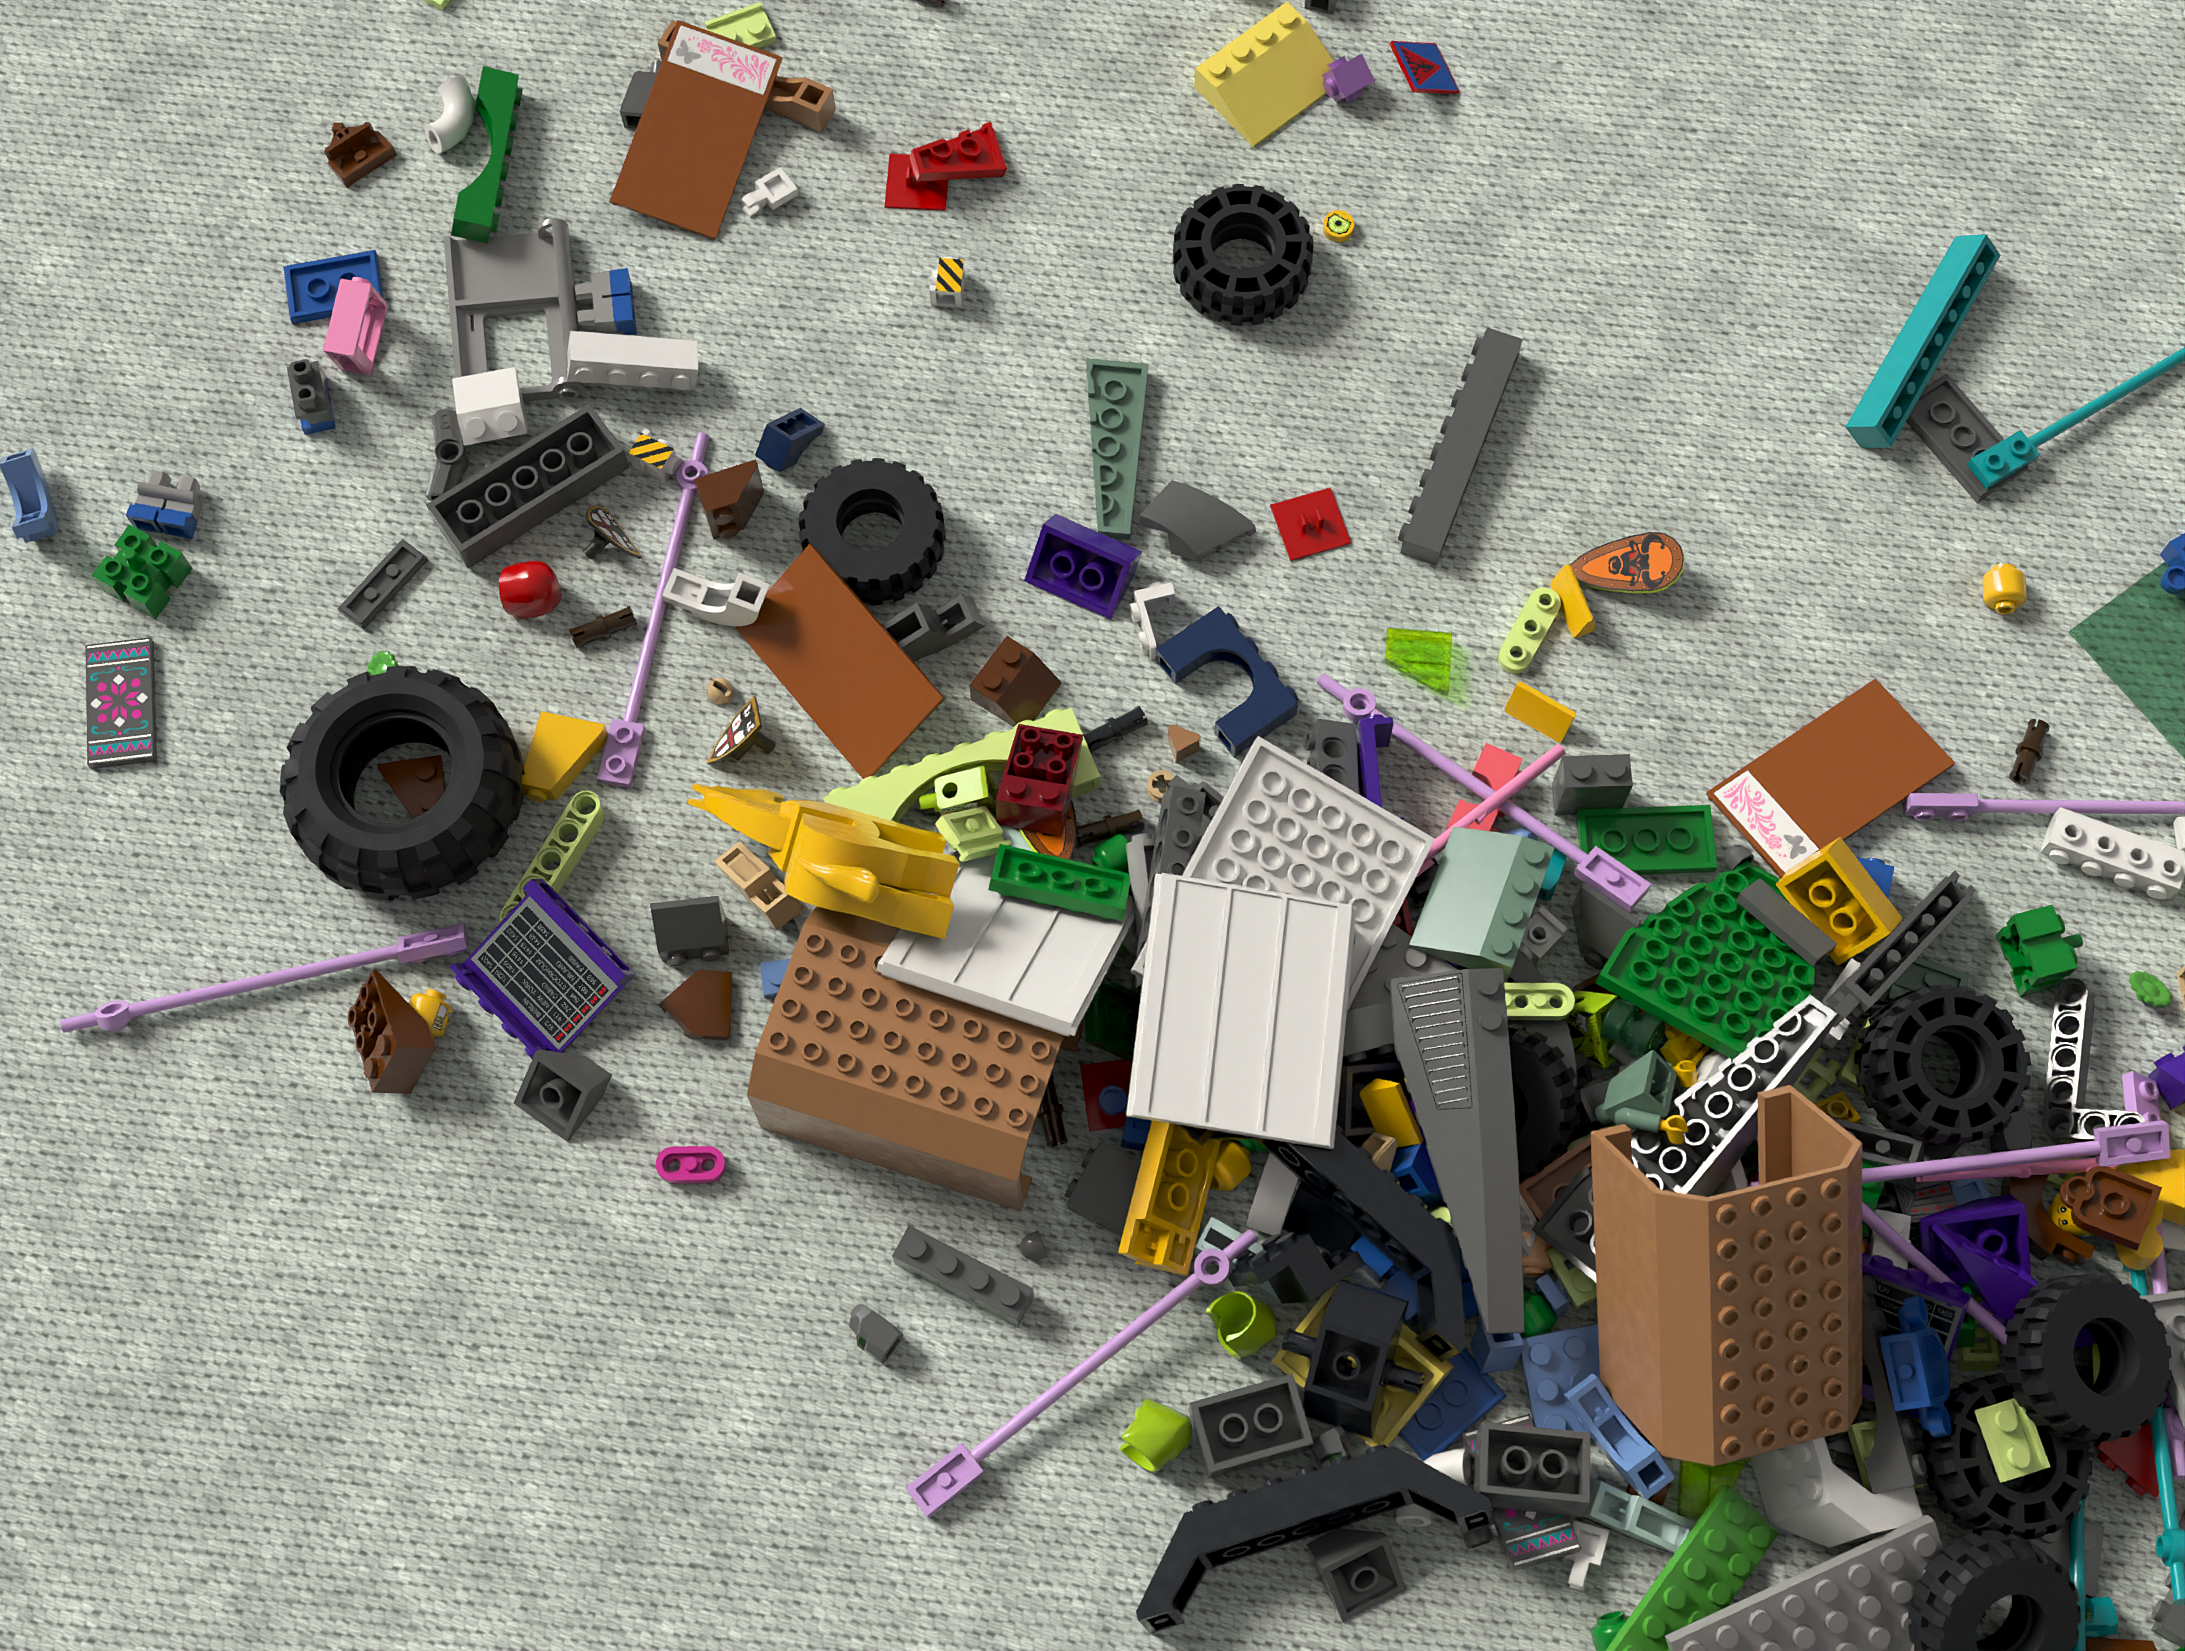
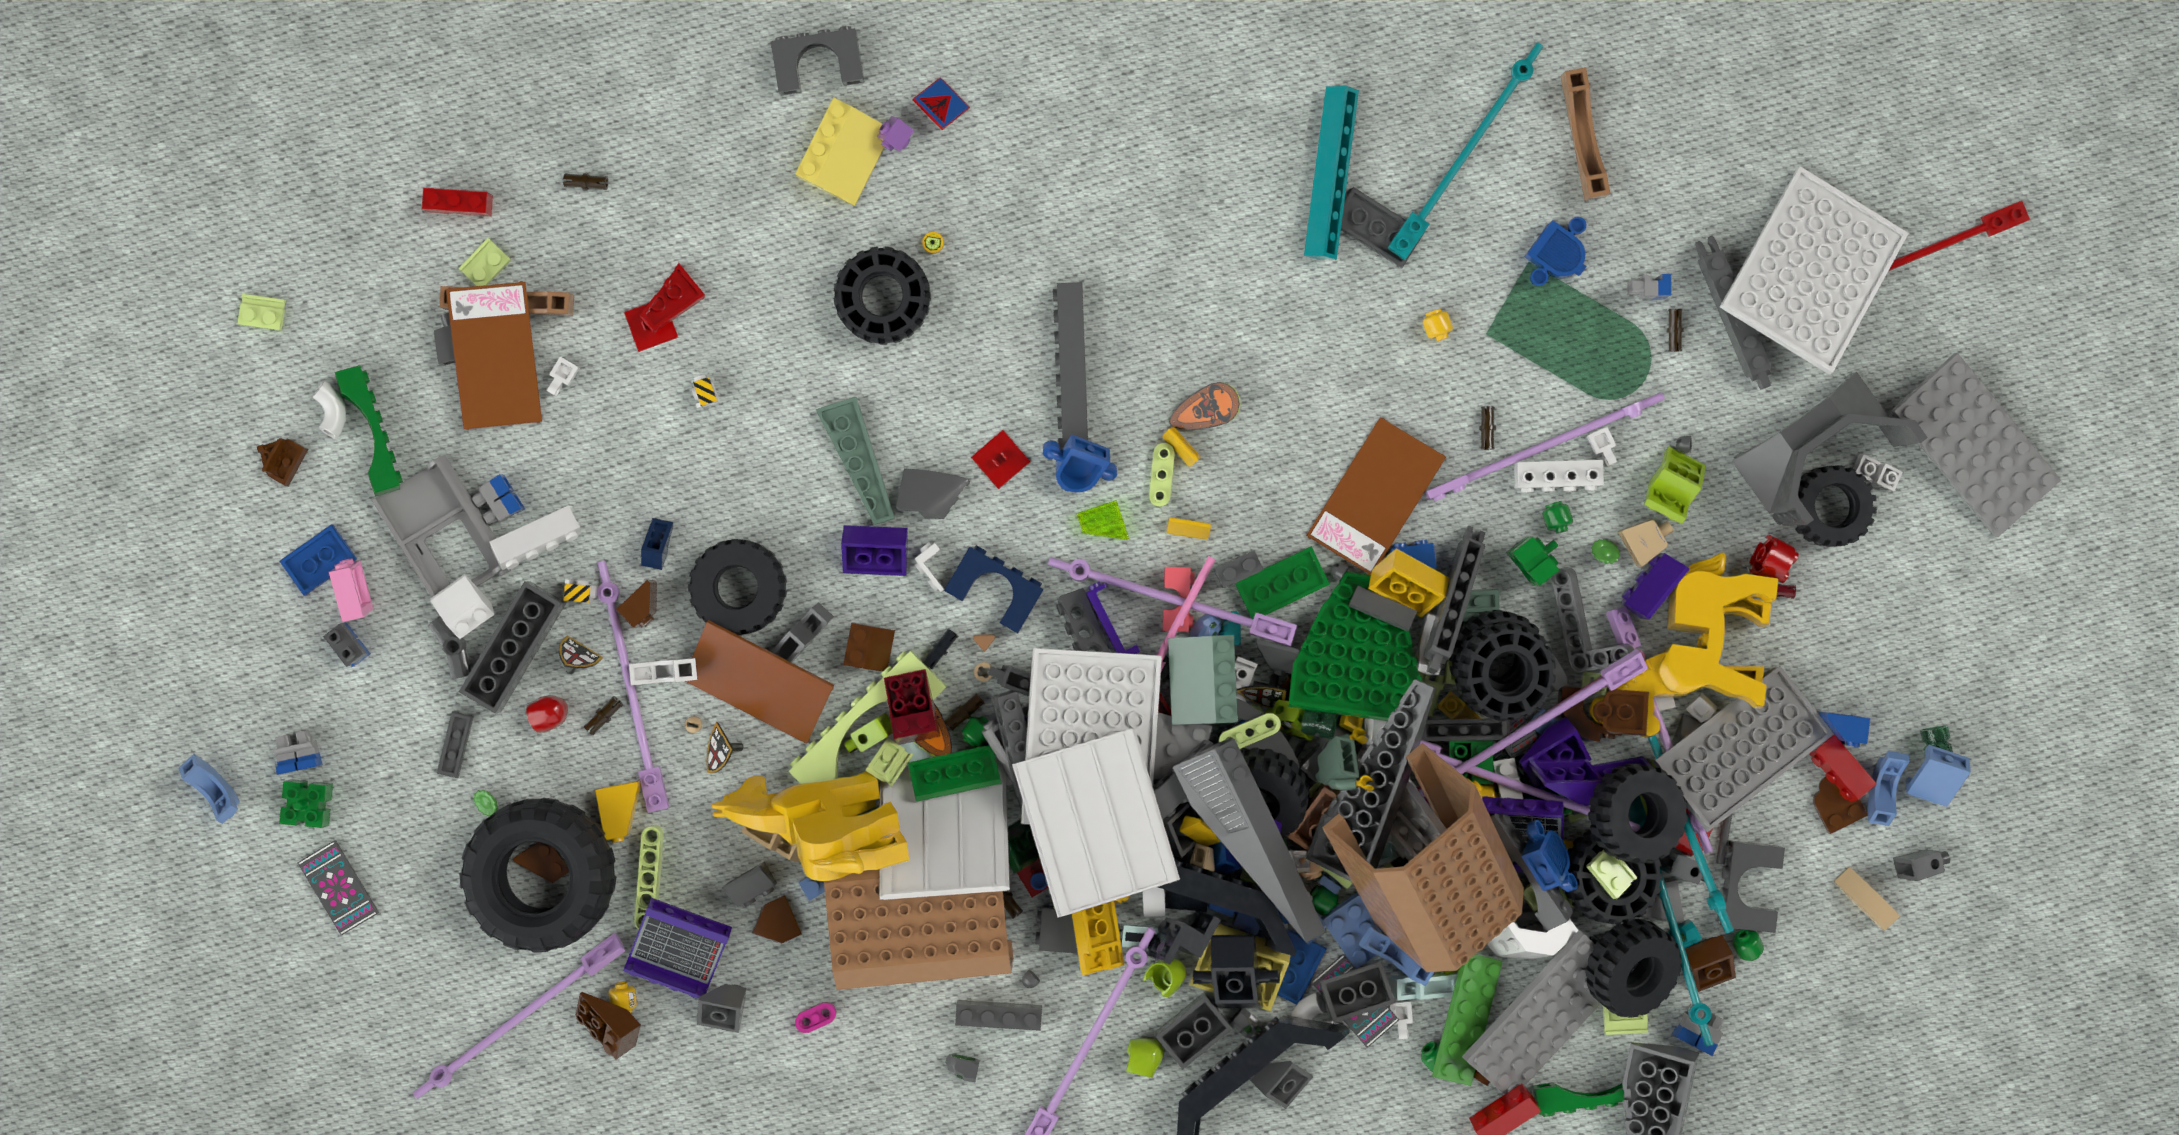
camera: 20 degrees left, 20 degrees up
(1421, 560) = (1080, 463): none -> blue piece
(1564, 969) = (1264, 693): none -> shield
(2093, 910) = (1557, 517): none -> green head
(2124, 1504) = (1681, 867): none -> dark grey torso

